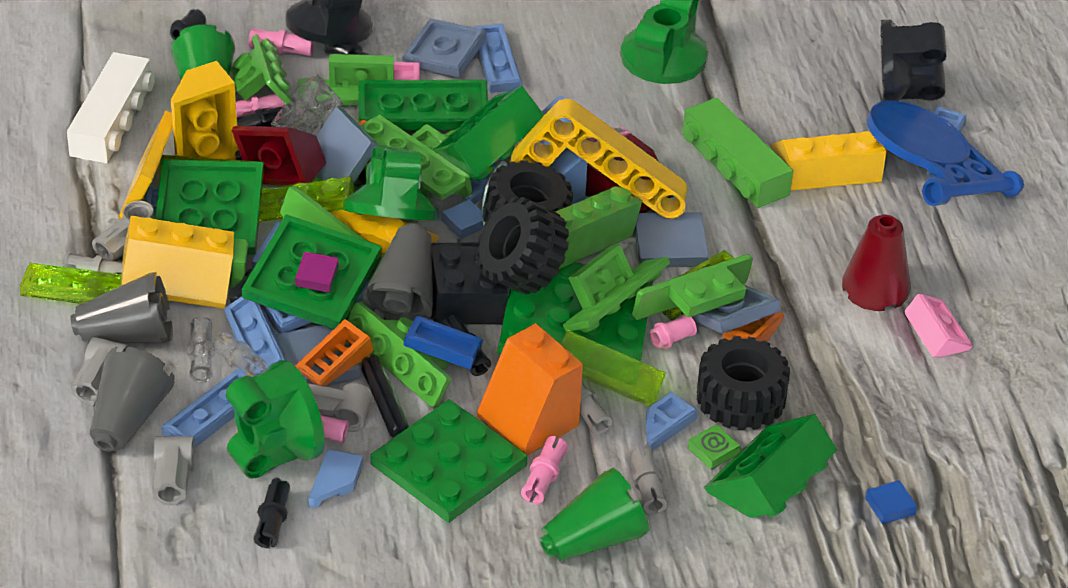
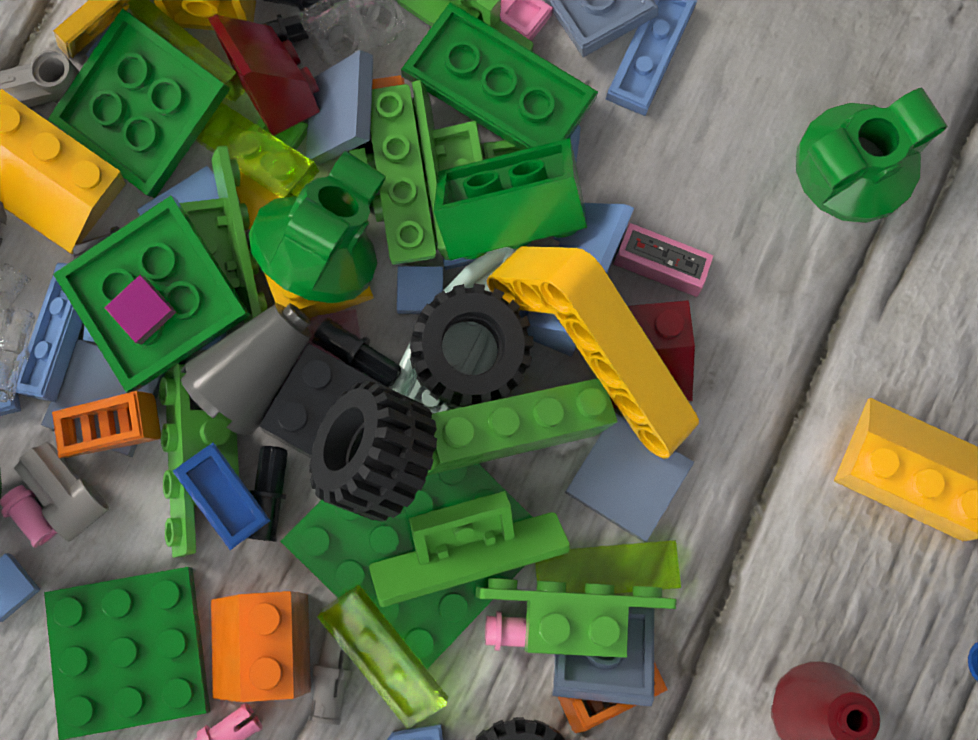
camera: 35 degrees right, 35 degrees up
(238, 261) = (115, 206): bright green tile -> none
(384, 395) = (128, 511): black axle -> none
(737, 152) = (810, 394): bright green brick -> none

